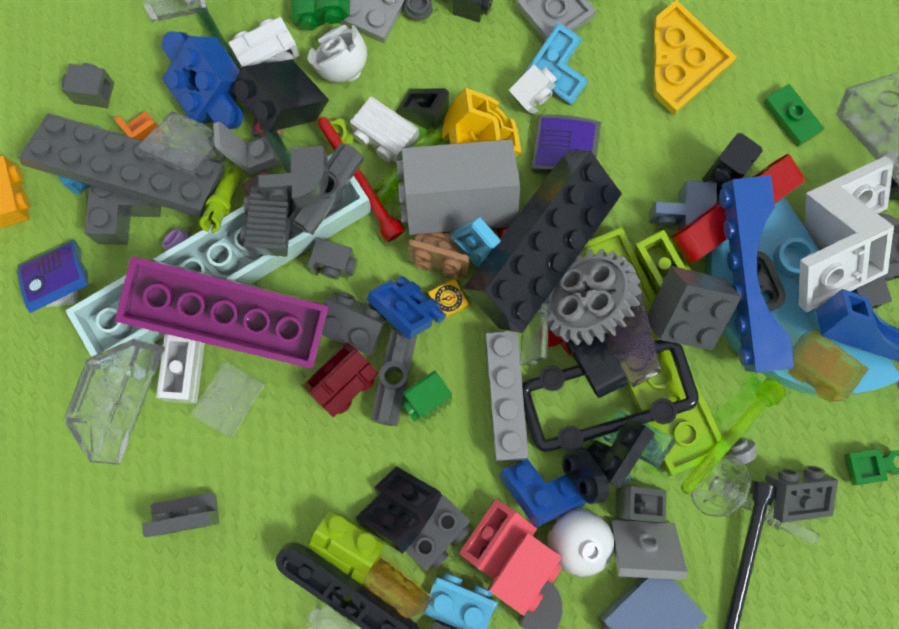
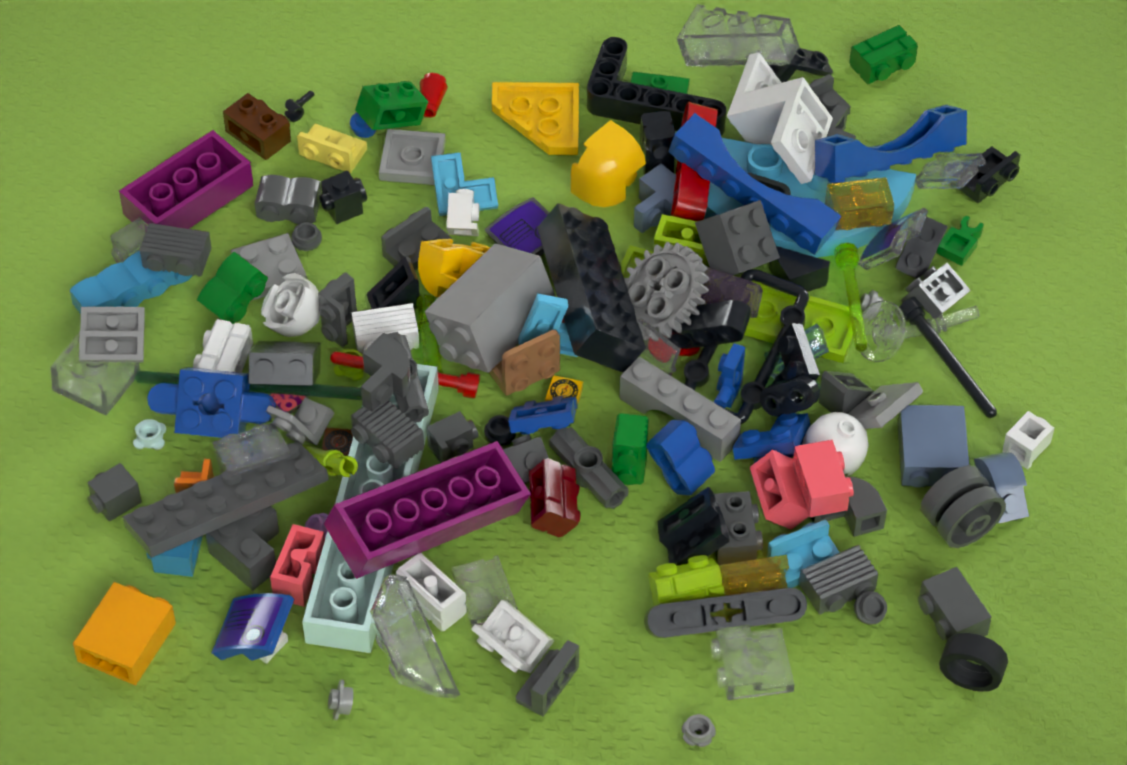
camera: 45 degrees left, 25 degrees down
(46, 387) = (340, 700): none -> light grey plate
(113, 259) = (297, 563): none -> coral brick
(151, 61) = (149, 428): none -> light aqua plate
(194, 458) = (513, 637): none -> white bracket
(363, 81) = (336, 304): none -> dark grey bracket
(370, 281) = (498, 430): none -> black plate
(456, 441) = (681, 457): none -> blue brick
(484, 75) = (407, 237): none -> dark grey bracket
(562, 411) = (731, 377): none -> blue plate
(676, 147) = (607, 166): none -> yellow brick
(719, 370) = (800, 269): none -> black slope
(770, 113) = (627, 101): none -> black beam
(815, 418) = (891, 239): none -> clear slope
(837, 442) = (920, 250): none -> black bracket

